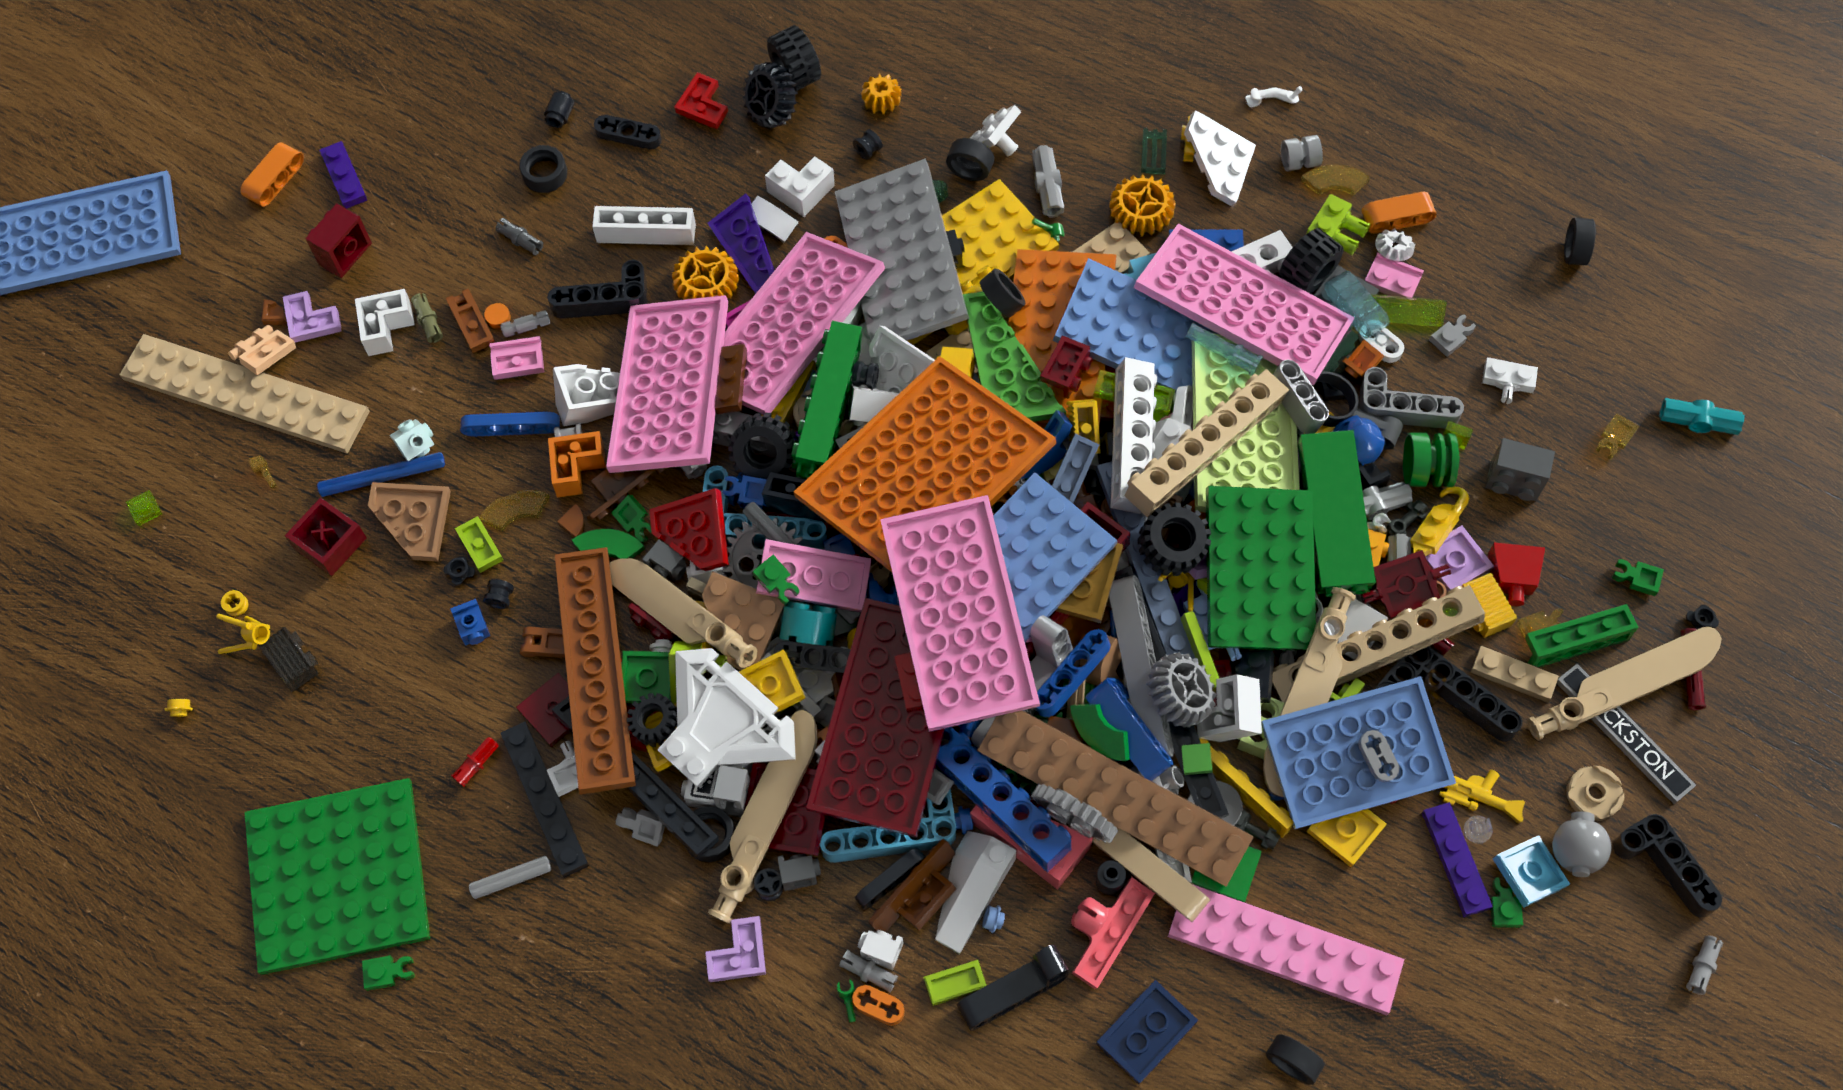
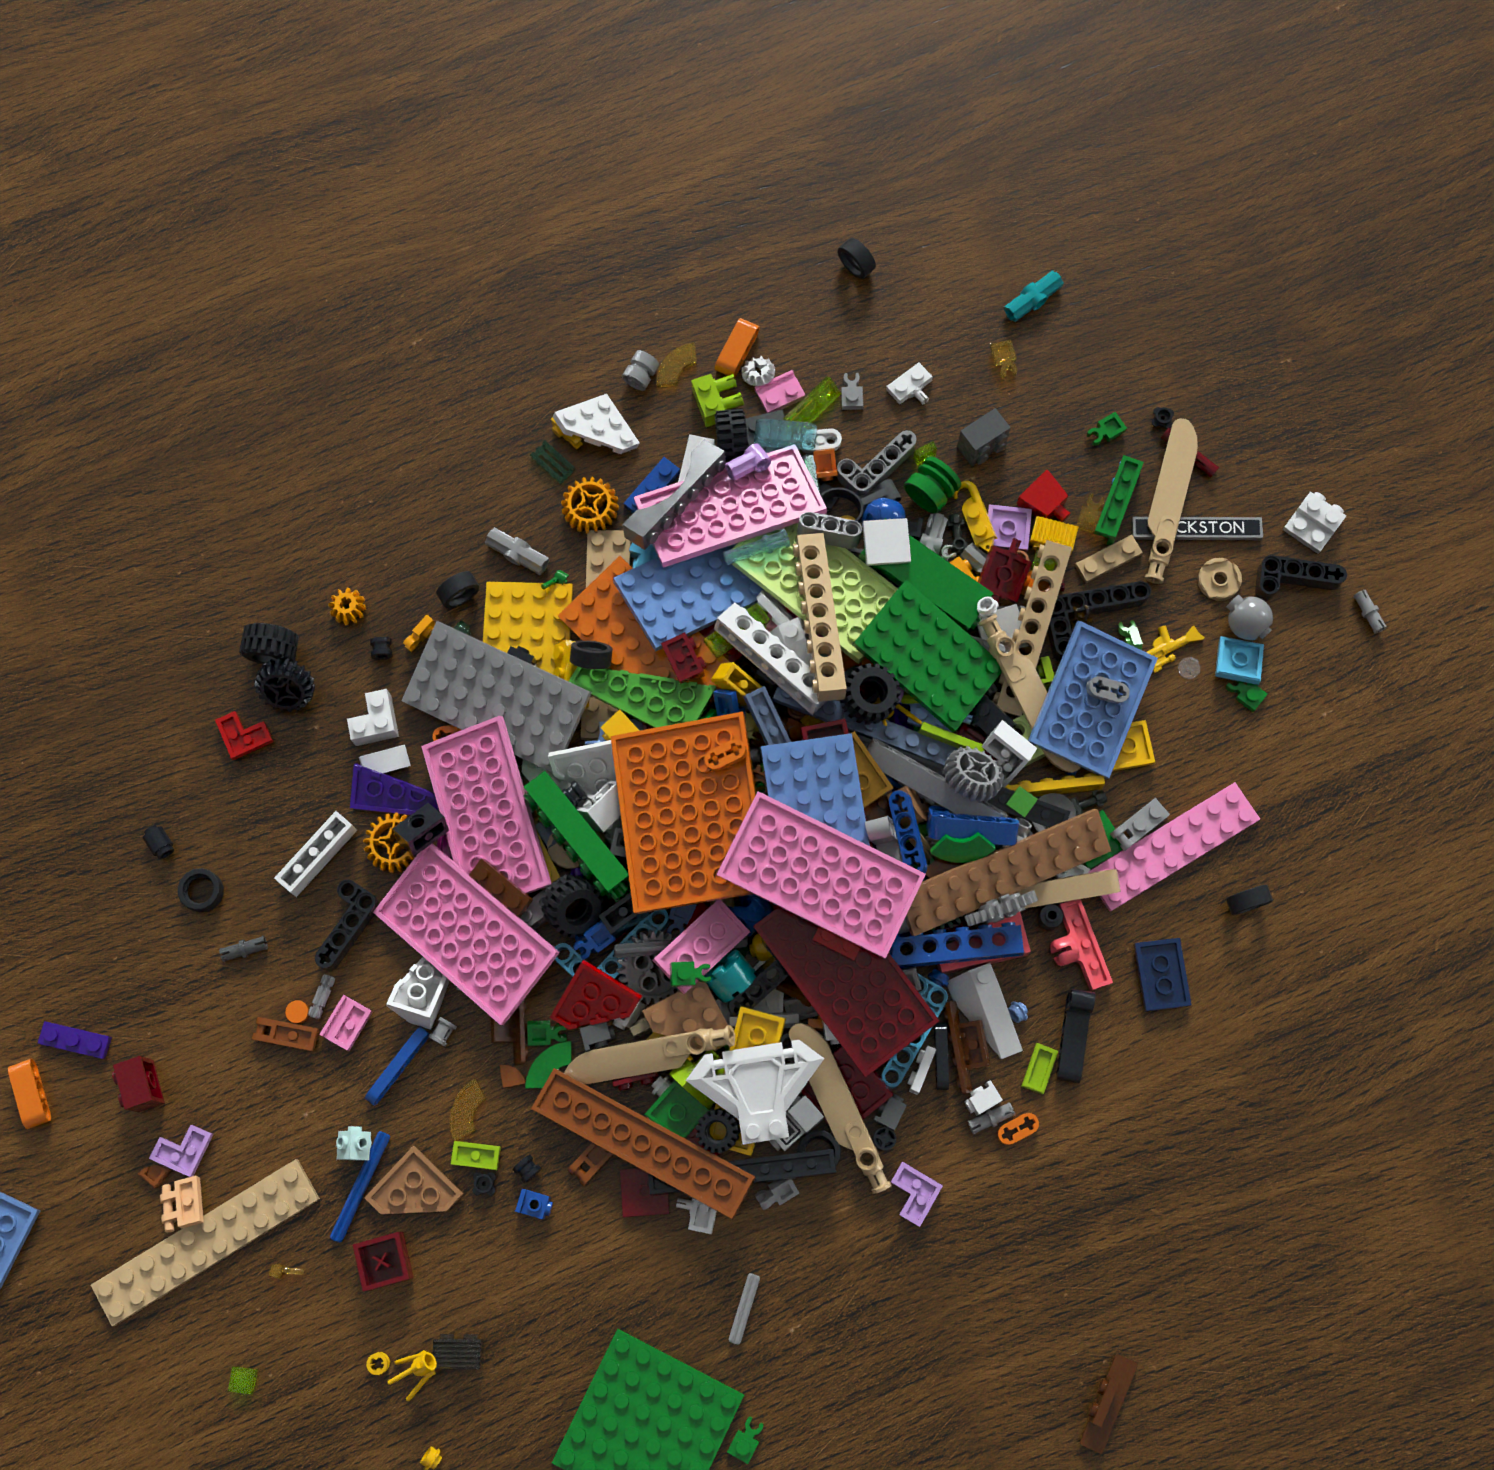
camera: 50 degrees left, 10 degrees up
(379, 315) = (229, 1101): white brick -> none
(426, 318) = (256, 1064): olive pin -> none
(474, 762) = (641, 1273): red axle -> none
(544, 799) = (704, 1245): black plate -> none
(572, 455) = (461, 1042): orange brick -> none
(635, 139) = (230, 792): black beam -> none
(730, 280) = (421, 829): none -> black brick
(847, 997) = (1000, 1146): green hand -> none
(852, 870) = (917, 1078): none -> white plate
(894, 161) = (420, 633): none -> light orange plate
(994, 130) = (449, 555): white plate -> none
(1002, 452) = (723, 750): none -> orange beam
(1163, 245) = (648, 523): none -> arch
(1278, 897) = (1140, 824): none -> light grey plate
(1288, 96) = (587, 339): white piece -> none
(1304, 290) = (752, 460): none -> lavender piece
(1331, 447) = (886, 542): none -> white tile
(1356, 584) = (987, 607): none -> white plate
(1457, 859) = (1197, 697): dark purple plate -> none
(1458, 747) = (1131, 634): none -> plate
(1743, 841) = (1315, 522): none -> white plate

